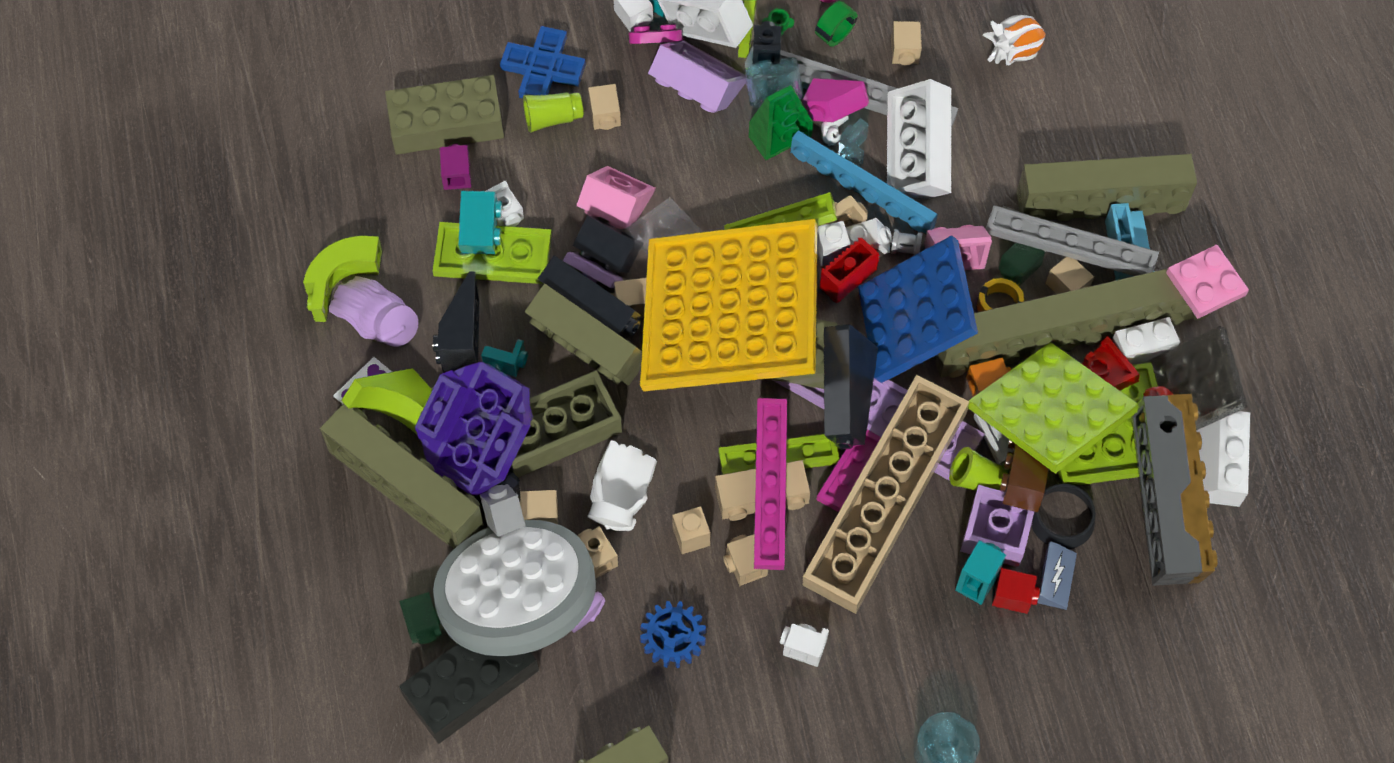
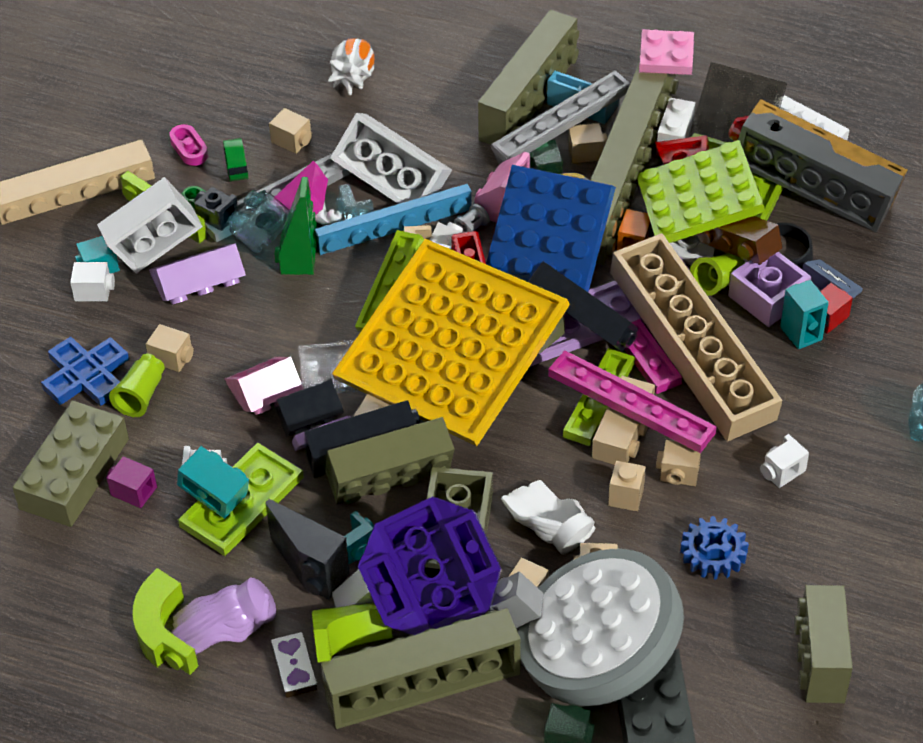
camera: 55 degrees left, 15 degrees down
(643, 34) = (125, 287): dark pink plate -> none

